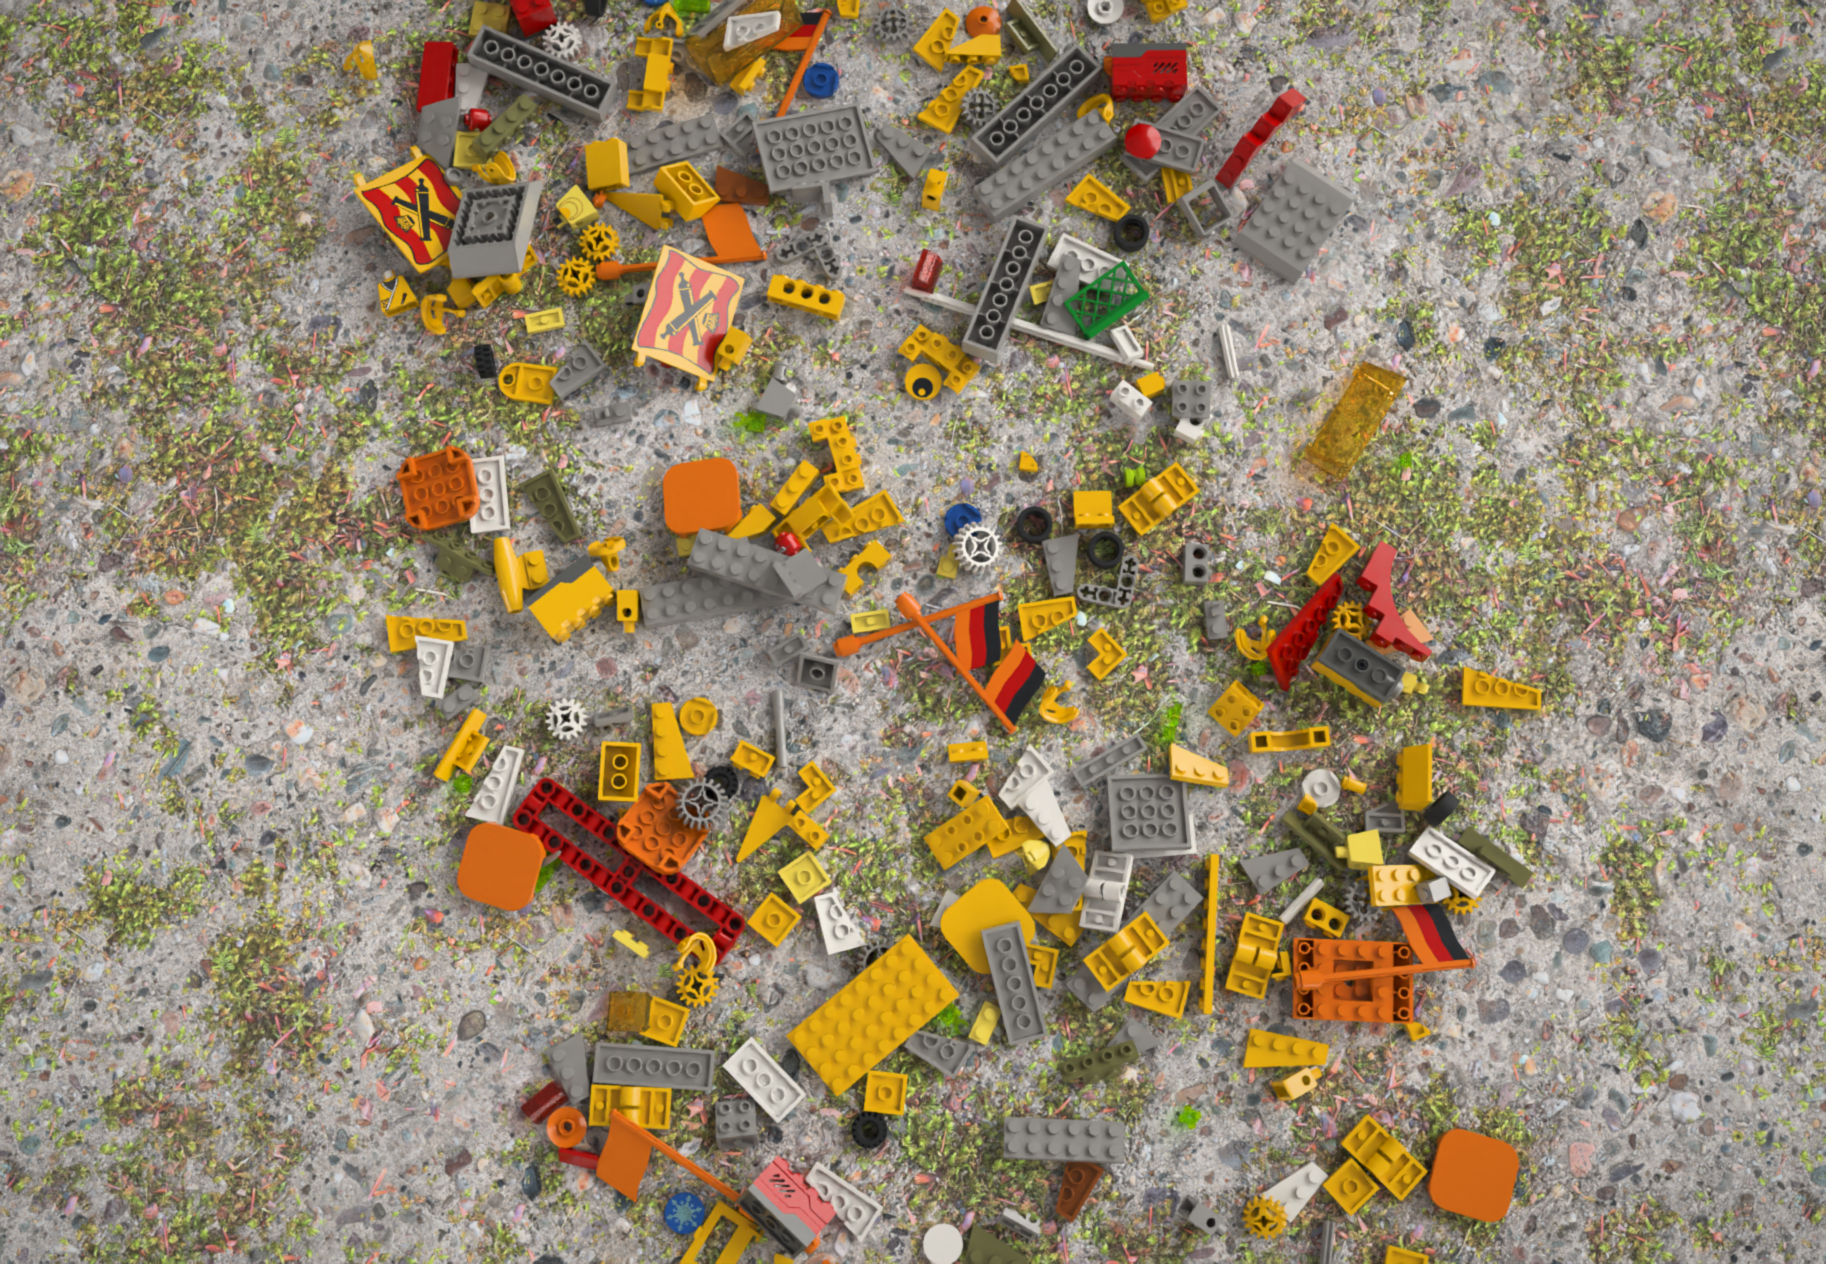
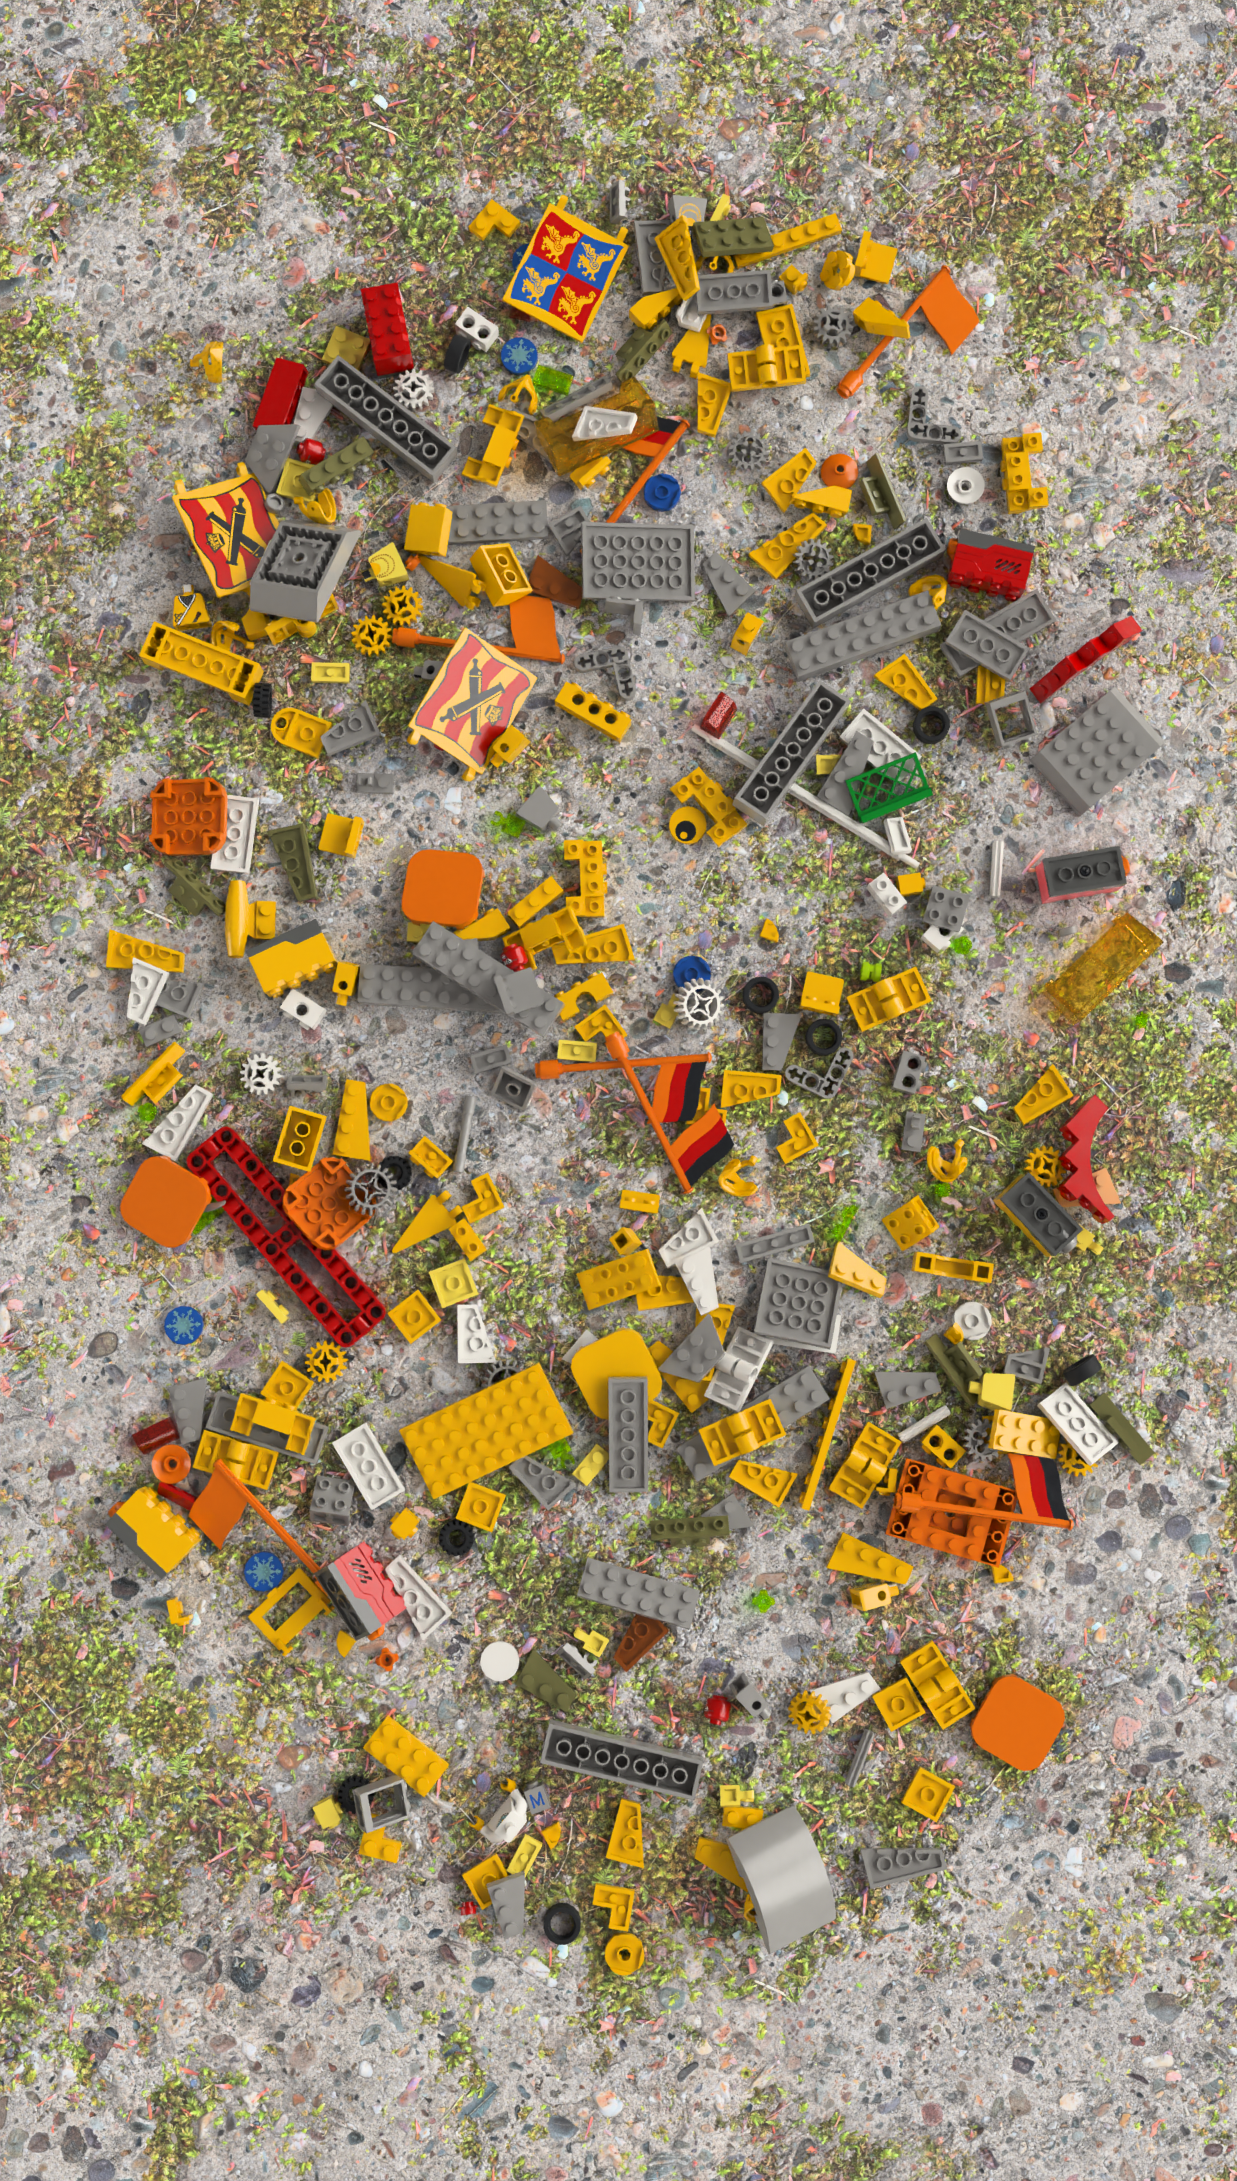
camera: 10 degrees right, 5 degrees up
(417, 338) = (201, 662): none -> yellow plate
(547, 985) = (183, 1325): none -> blue tile
(563, 1199) = (152, 1530): none -> yellow piece
(584, 639) = (294, 1002): none -> white brick
(591, 471) = (341, 835): none -> yellow bracket
(608, 551) = (339, 919): yellow tile -> none
(628, 1011) = (255, 1370): clear yellow slope -> none
(659, 1052) = (276, 1417): none -> yellow bracket
(692, 943) = (341, 1337): yellow helmet -> none
(780, 371) = (549, 781): light grey bush -> none
(814, 1129) = (404, 1524): none -> yellow brick
(885, 587) = (599, 1021): none -> yellow plate
(1032, 1200) = (593, 1642): none -> light yellow plate
(1034, 854) = (679, 1317): light yellow brick -> none
(1142, 141) = (966, 636): red dish -> none
(1172, 1238) = (717, 1709): none -> red head
(1215, 426) = (962, 950): none -> clear neon green plate
(1301, 633) = (990, 1168): red wing -> none
(1311, 335) = (1082, 874): none -> dark grey piece
(1353, 785) = (1002, 1324): yellow pin -> none
(1414, 777) = (1064, 1333): yellow slope -> none
(1433, 890) = (1052, 1446): light grey brick -> none
(1489, 691) = (1160, 1267): yellow wing -> none

